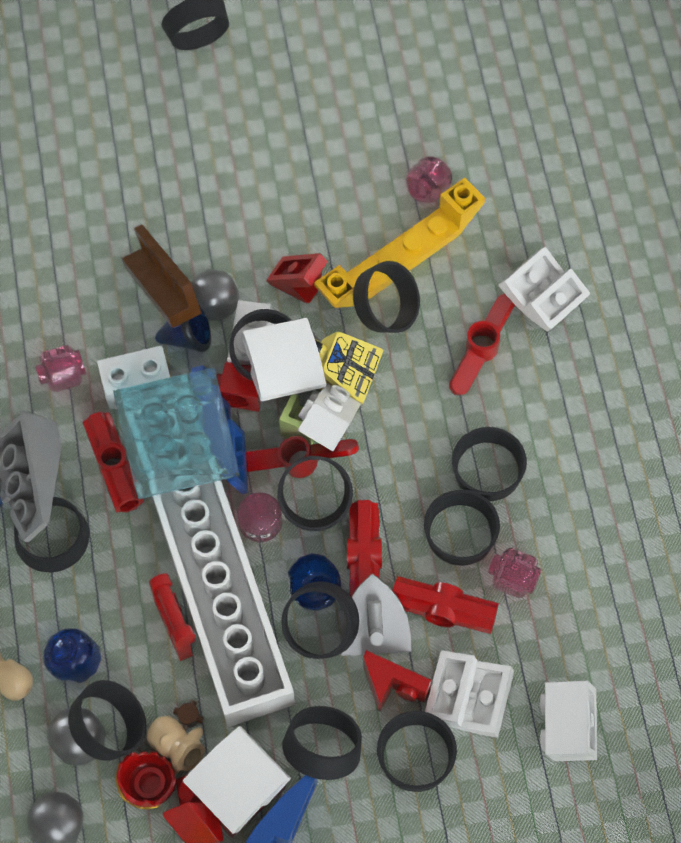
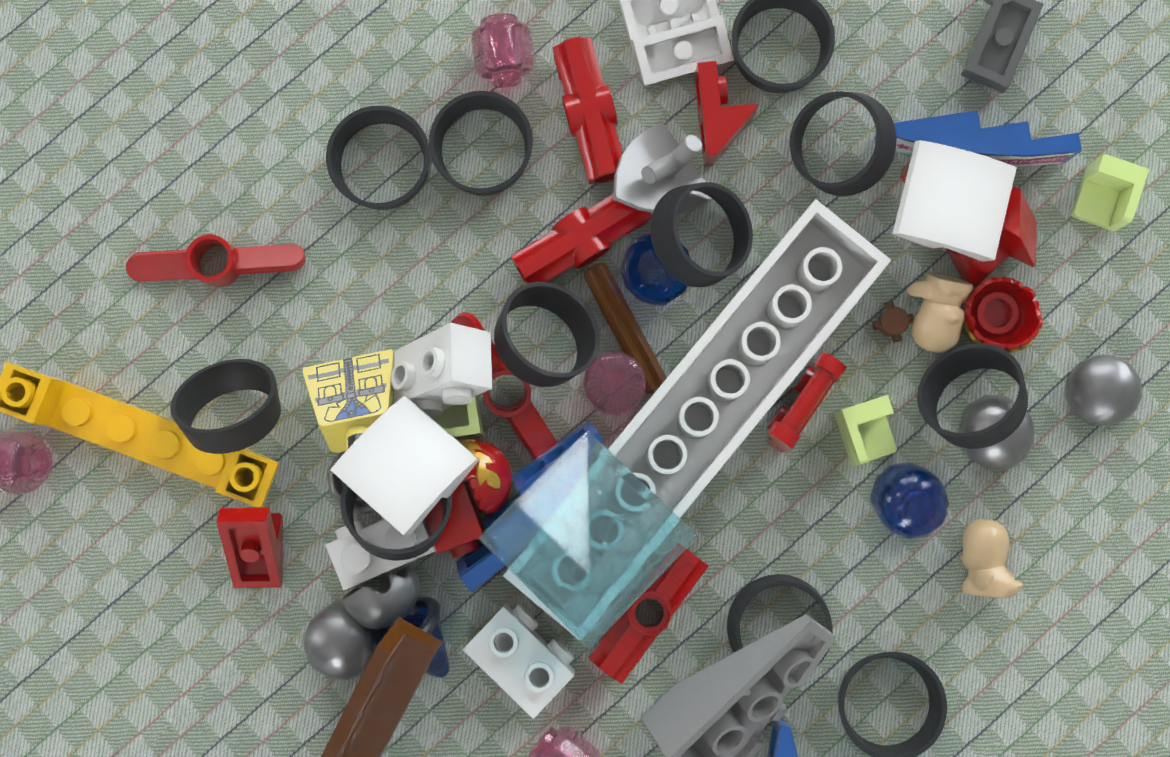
camera: 120 degrees left, 20 degrees up
(132, 653) = (866, 430): none -> yellowish green panel
(216, 322) = (382, 607): none -> flat silver hair
(255, 415) = (490, 476): none -> red hair
(291, 549) = (624, 323): none -> reddish brown axle
(544, 289) = (96, 226): white slope -> none

